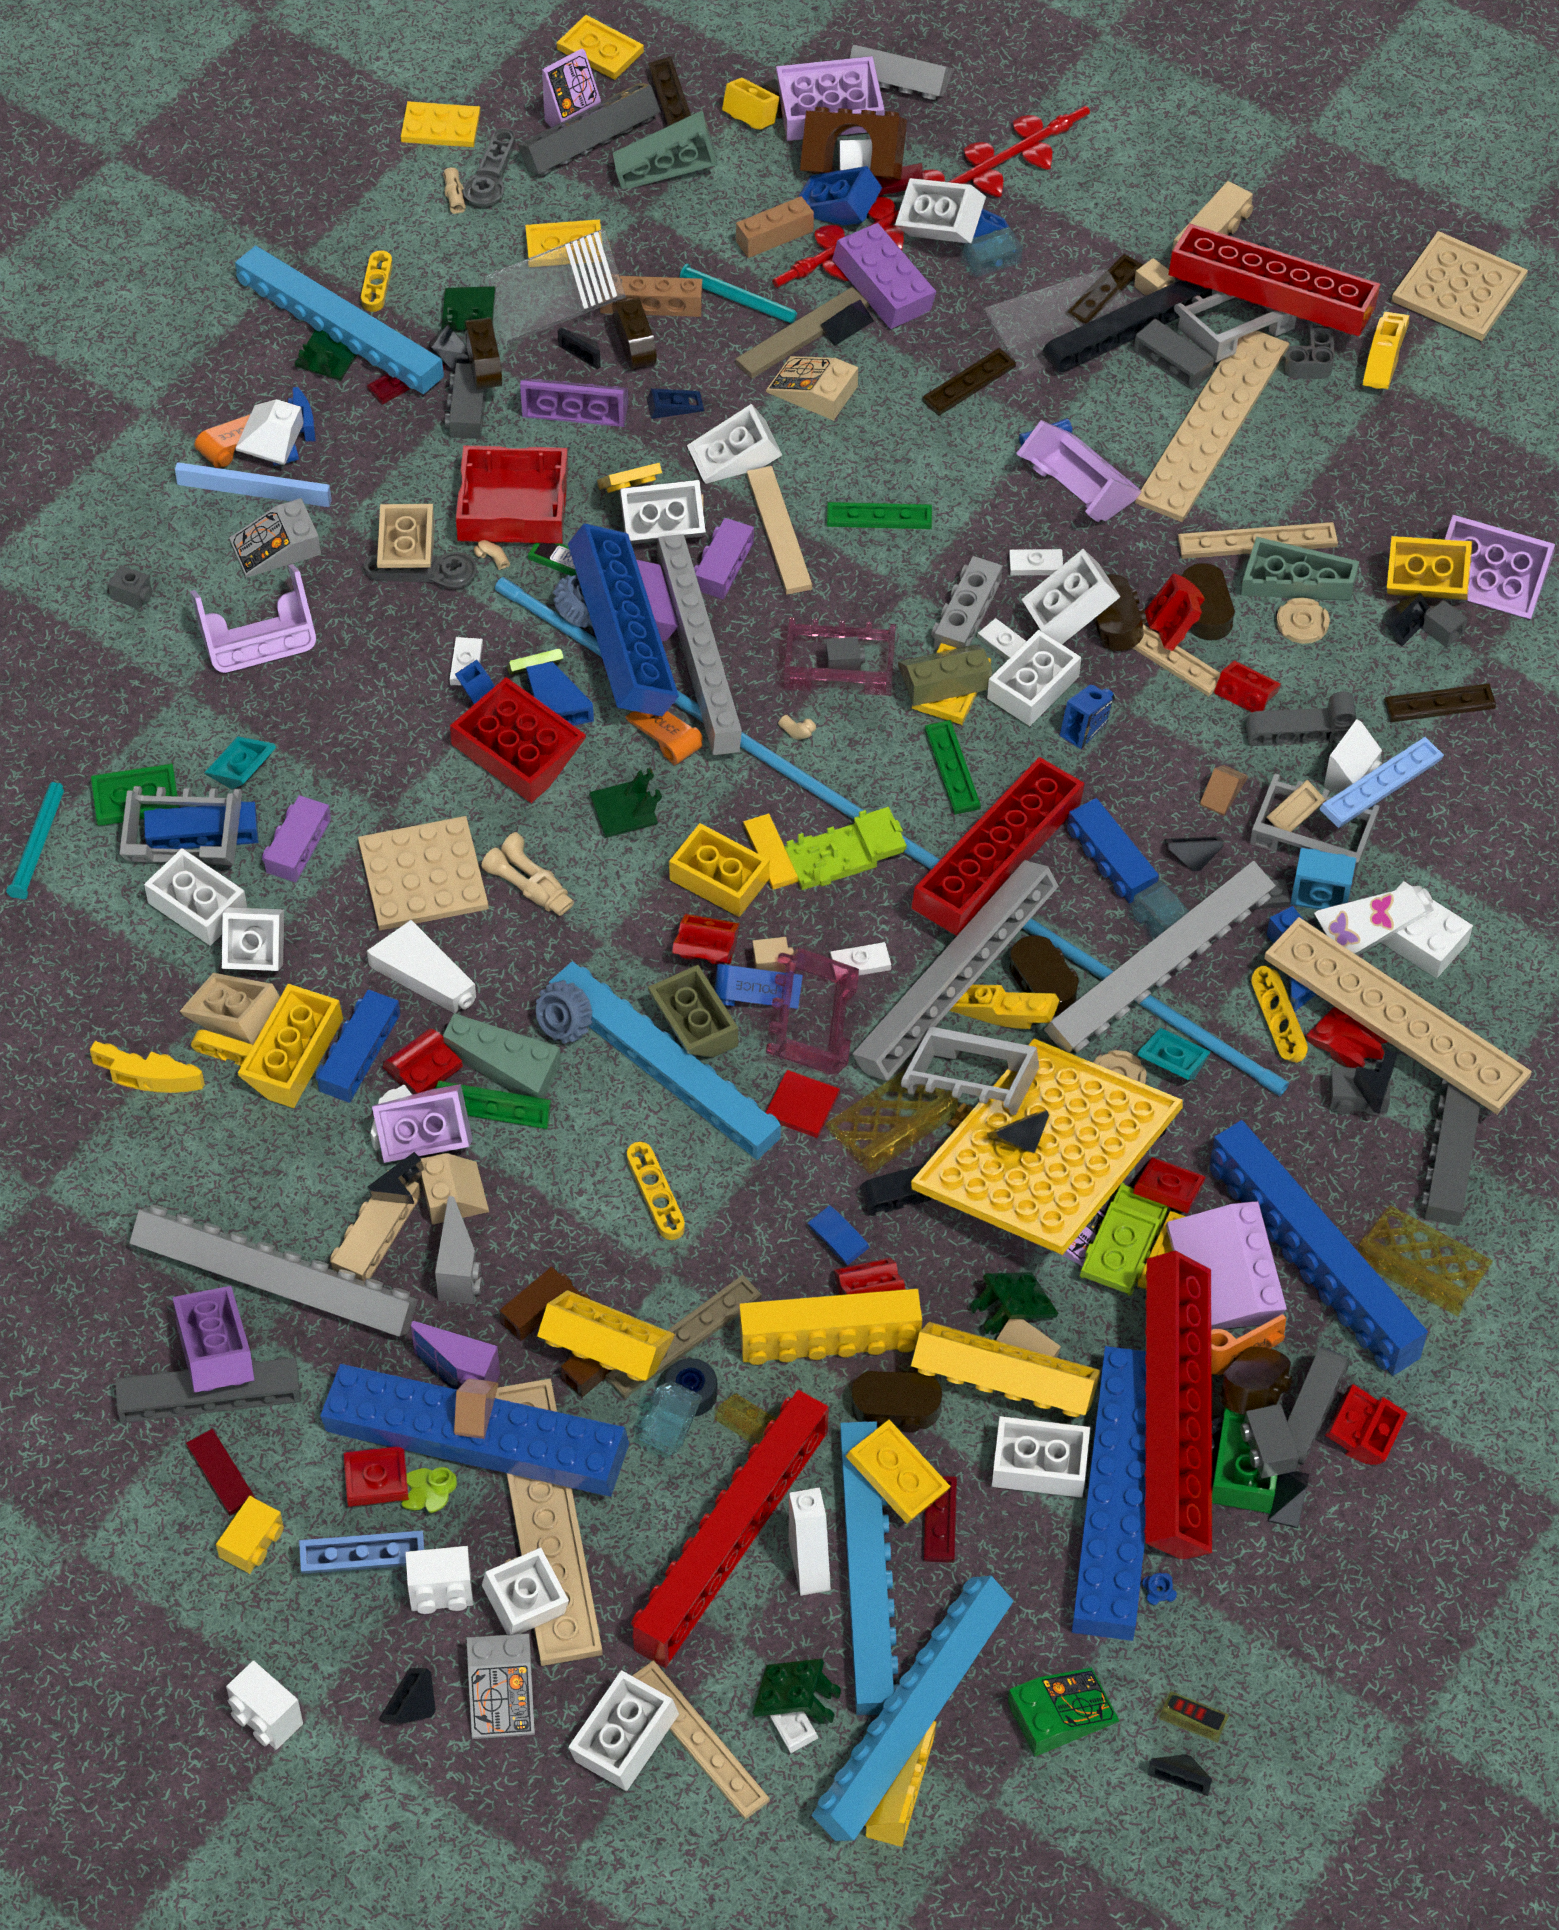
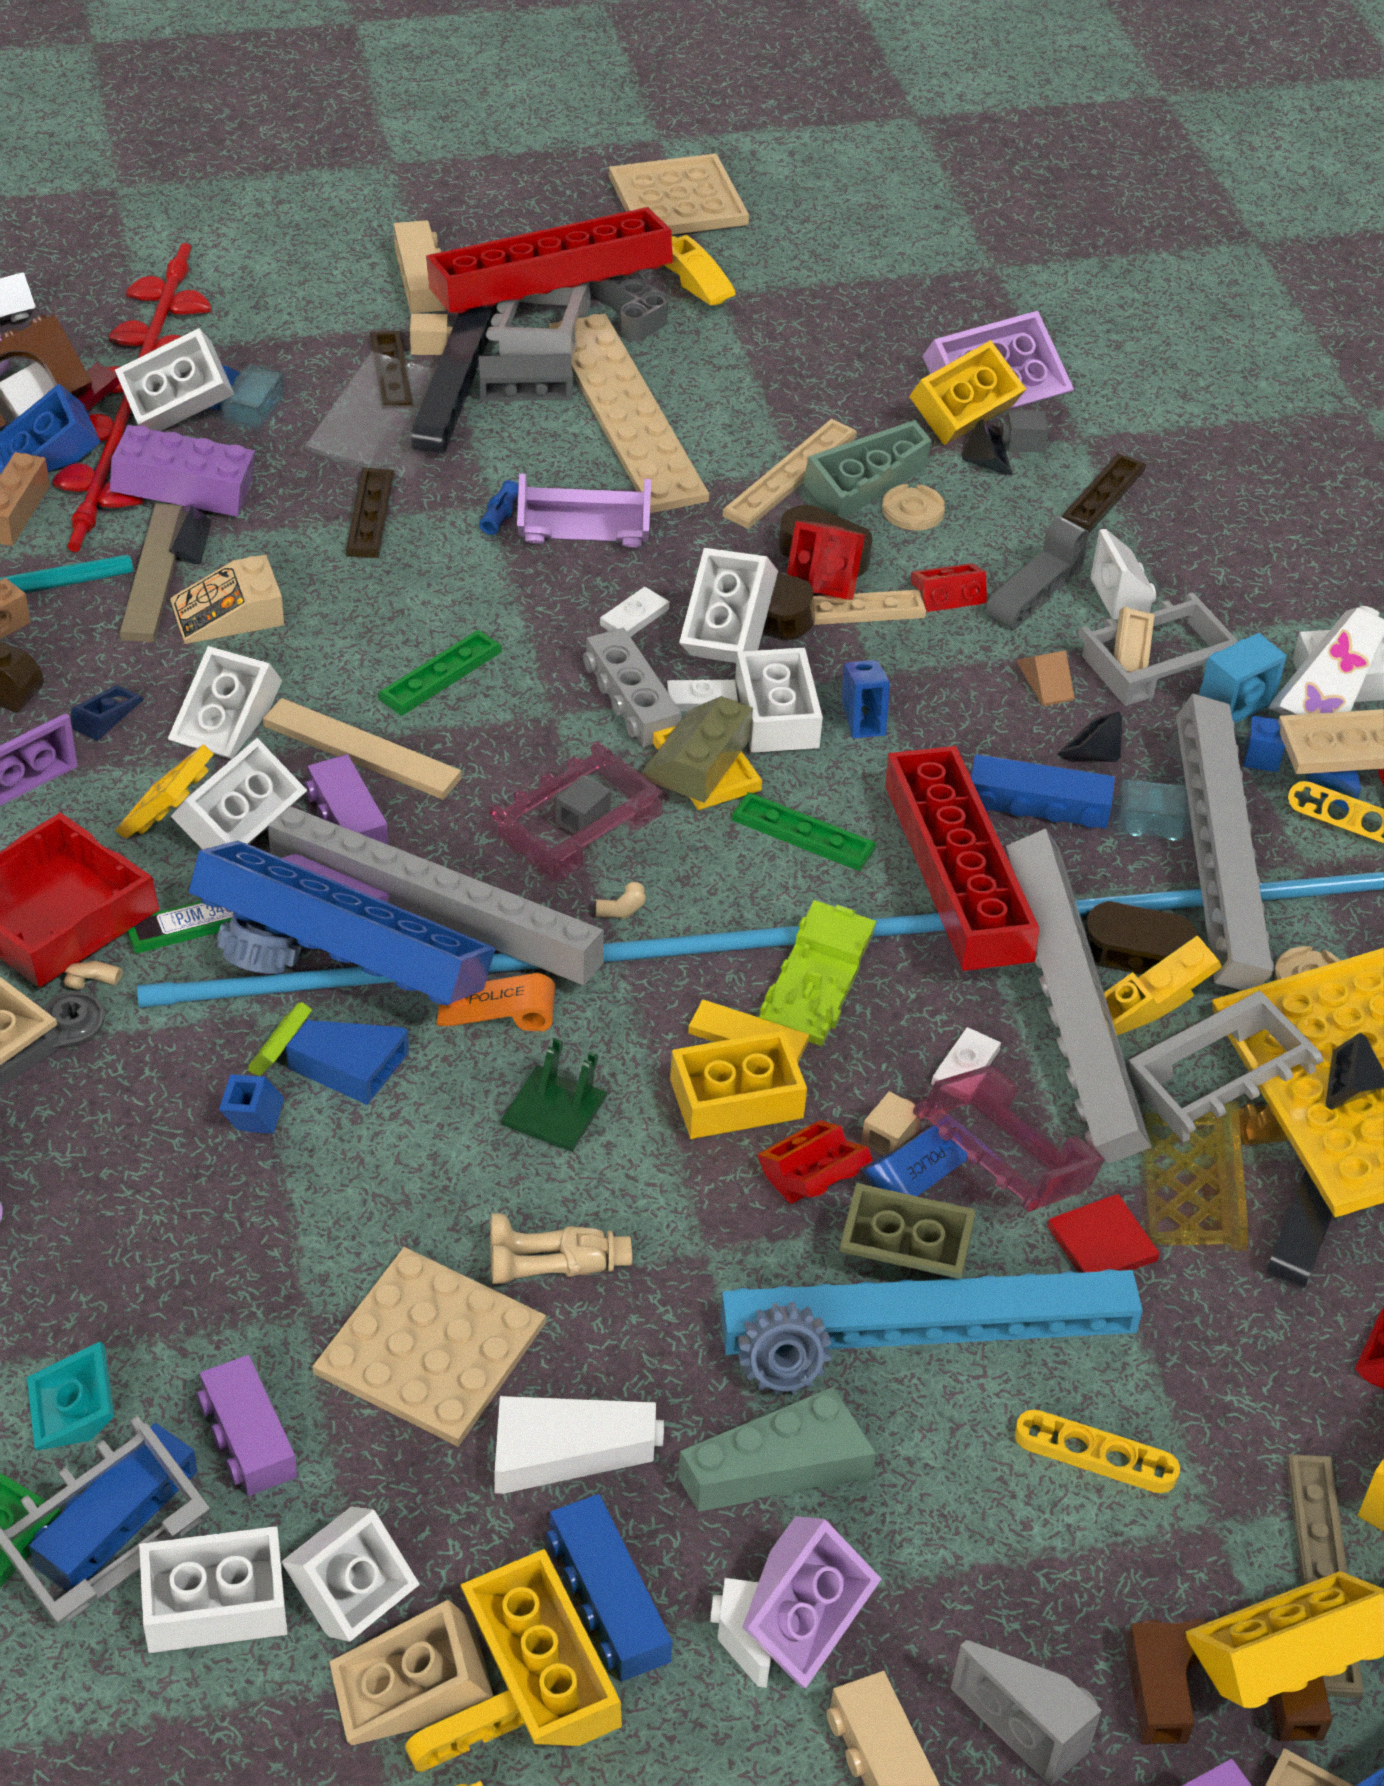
camera: 50 degrees left, 10 degrees down
(391, 1185) = (876, 1693): black slope -> none
(423, 1062) = (699, 1539): red brick -> none
(455, 1177) = (909, 1647): tan slope -> none
(465, 652) = (195, 1096): white plate -> none
(504, 1106) = (847, 1502): green tile -> none
(516, 739) = (367, 1124): red slope -> none
(838, 1234) = (1314, 1328): blue slope -> none
(1174, 1054) = (1329, 917): teal slope -> none
(1381, 782) = (1166, 575): light blue tile -> none

